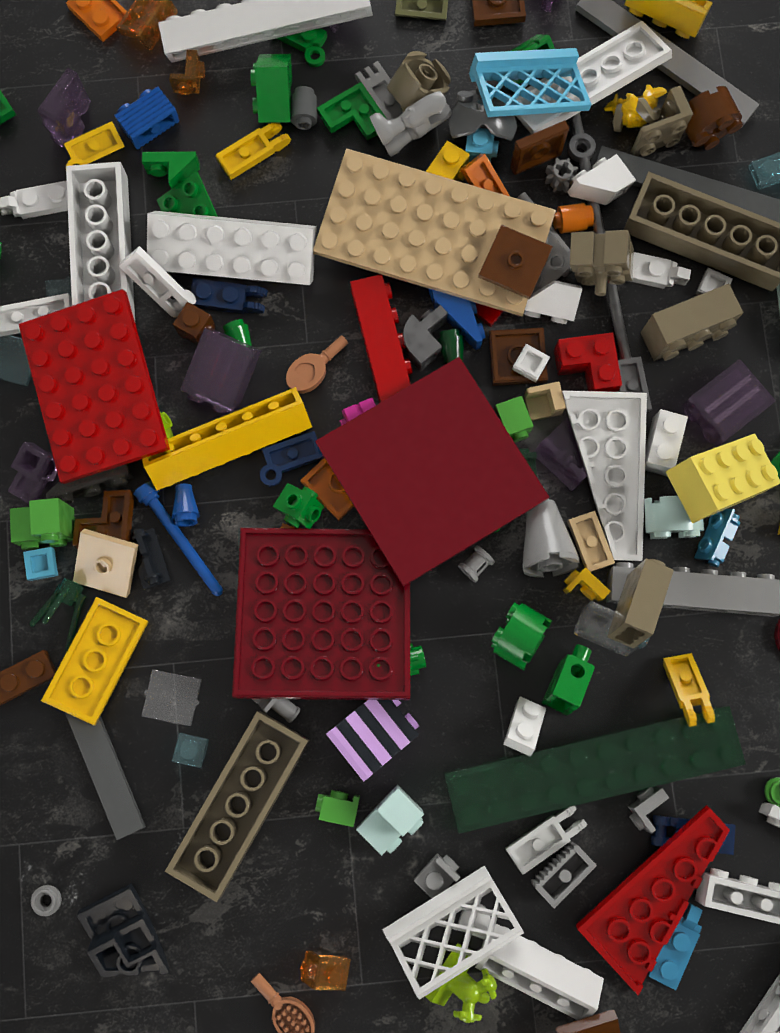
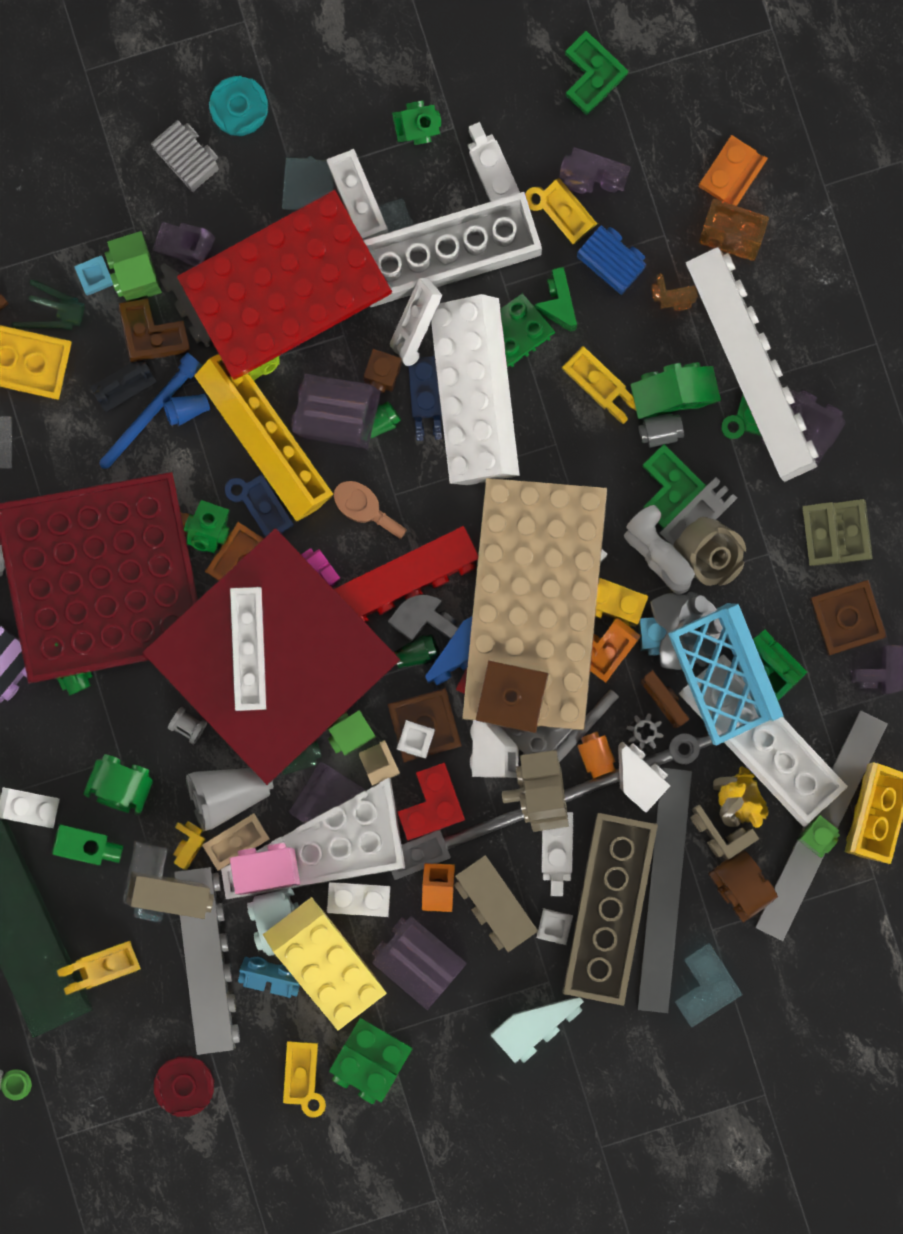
camera: 80 degrees right, 5 degrees up
(105, 563) = (106, 342): tan plate -> none
(422, 485) = (248, 649): none -> white plate
(626, 515) = (264, 870): none -> bright pink brick
(666, 370) = (438, 887): none -> orange brick
(684, 46) = (819, 836): none -> bright green brick

